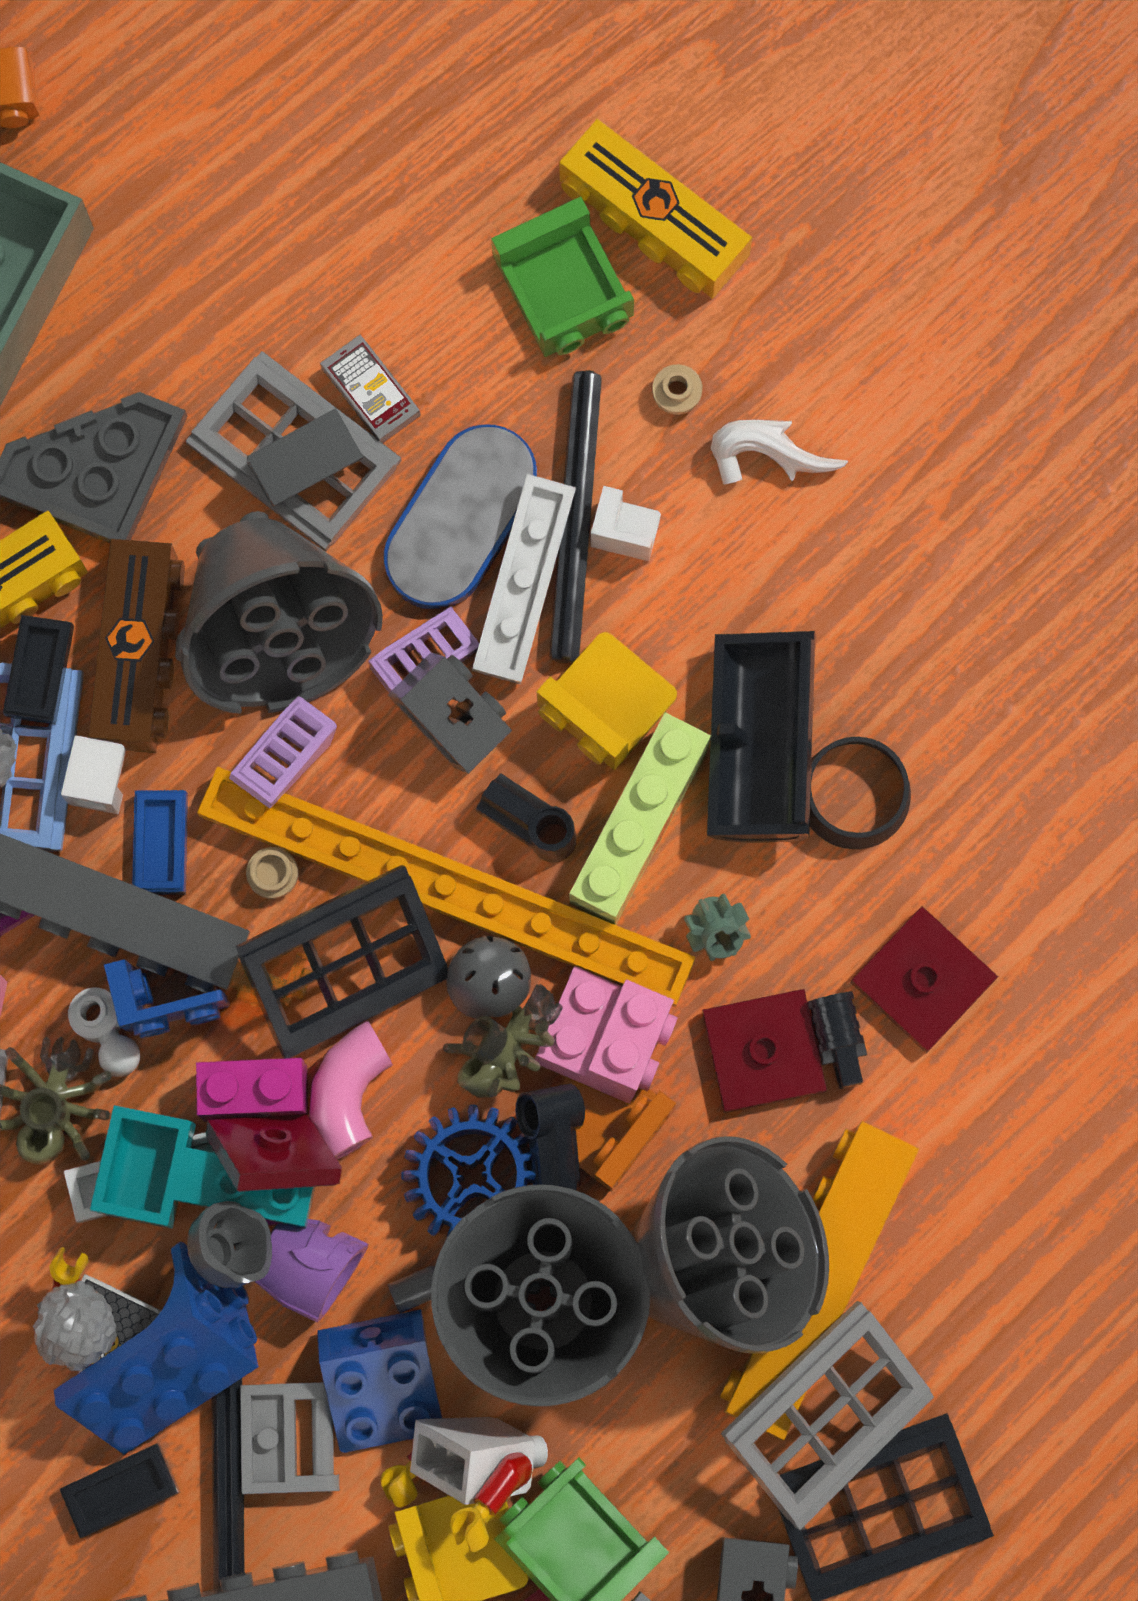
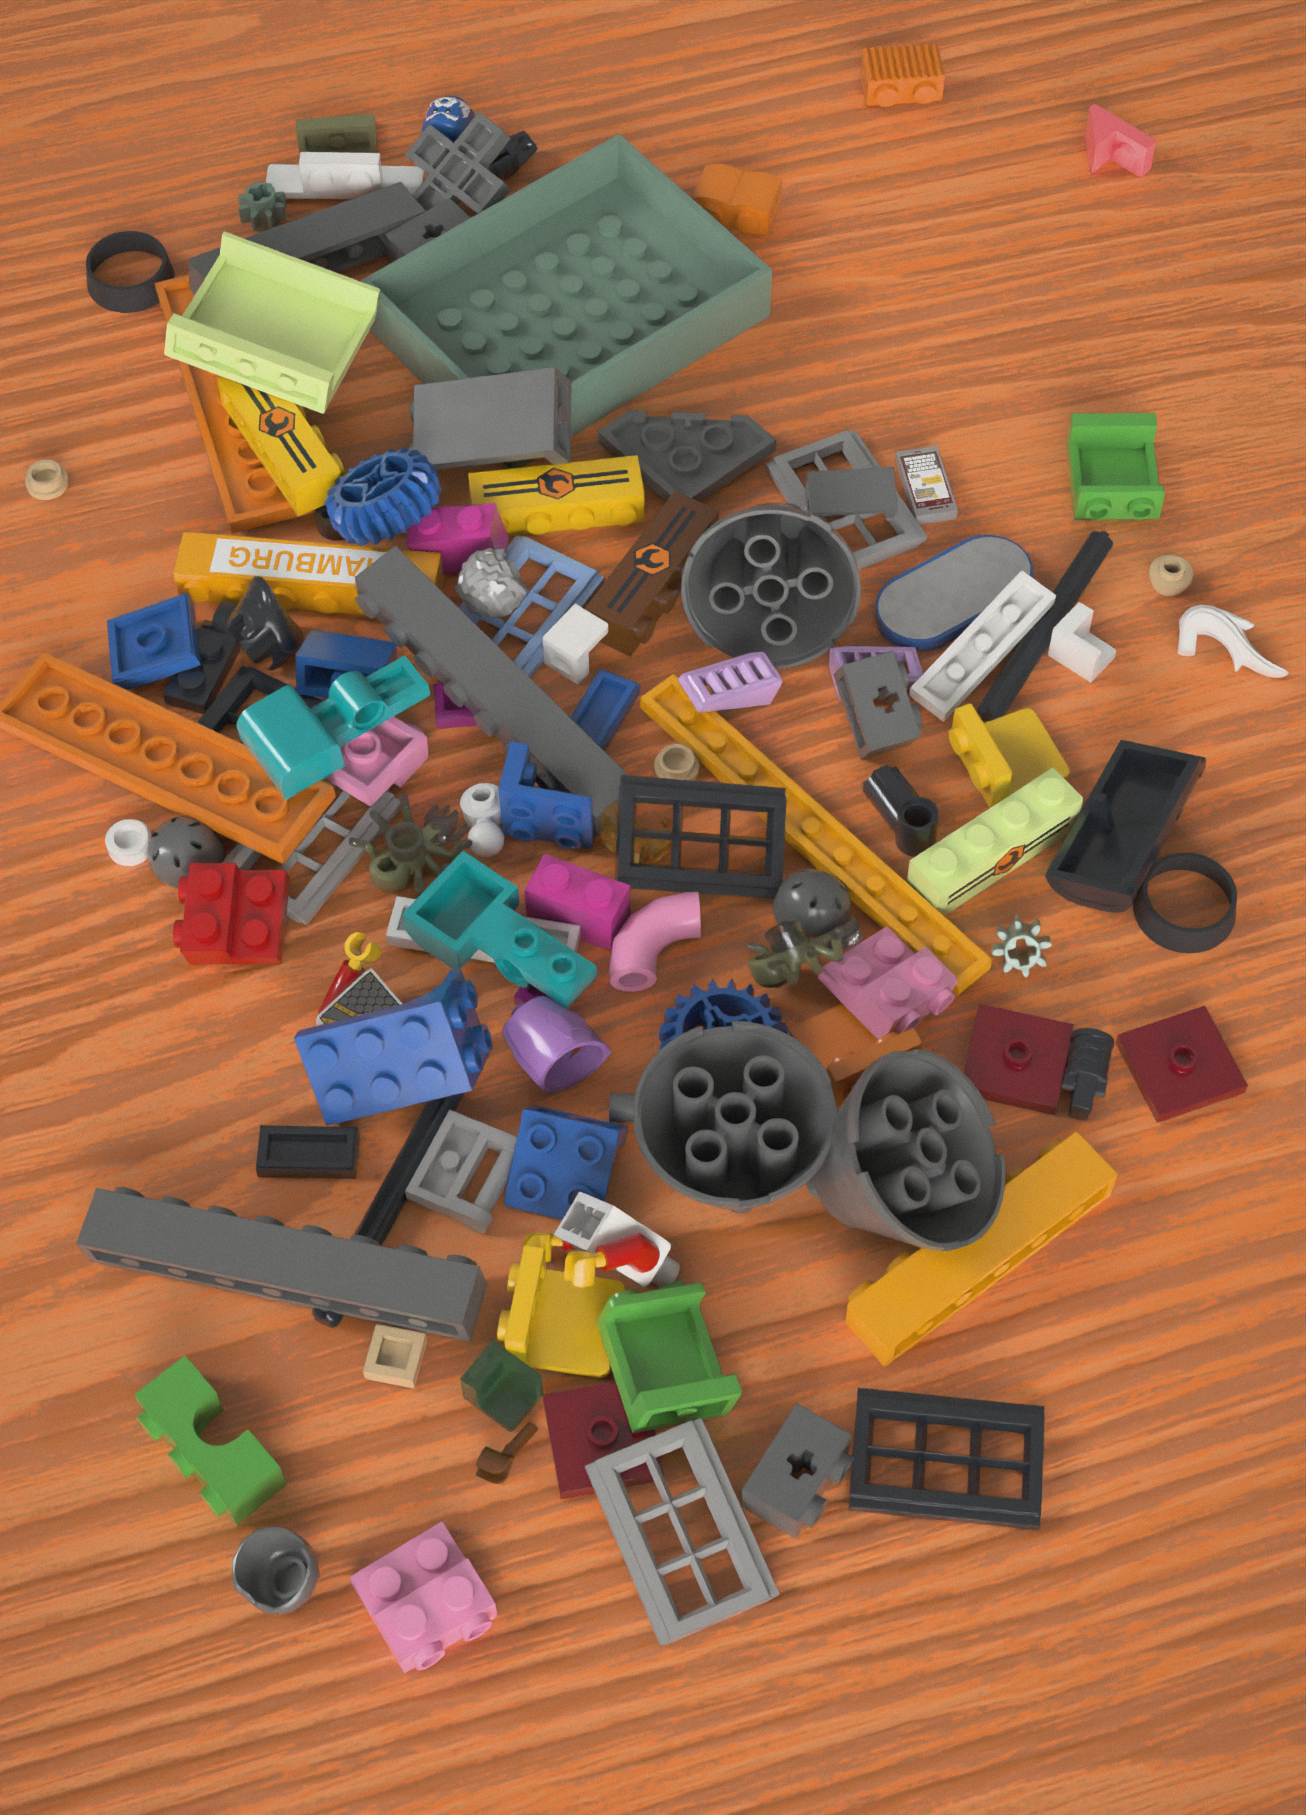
camera: 25 degrees right, 20 degrees down
(38, 669) = (571, 558): black tile -> none
(74, 1326) = (341, 983): light grey piece -> none
(213, 1249) = (485, 982): dark grey helmet -> none
(273, 1152) = (571, 935): dark red plate -> none
(550, 1123) = (811, 1016): black piece -> none
(654, 209) = (1211, 451): yellow brick -> none
(794, 1382) = (948, 1393): light grey piece -> none

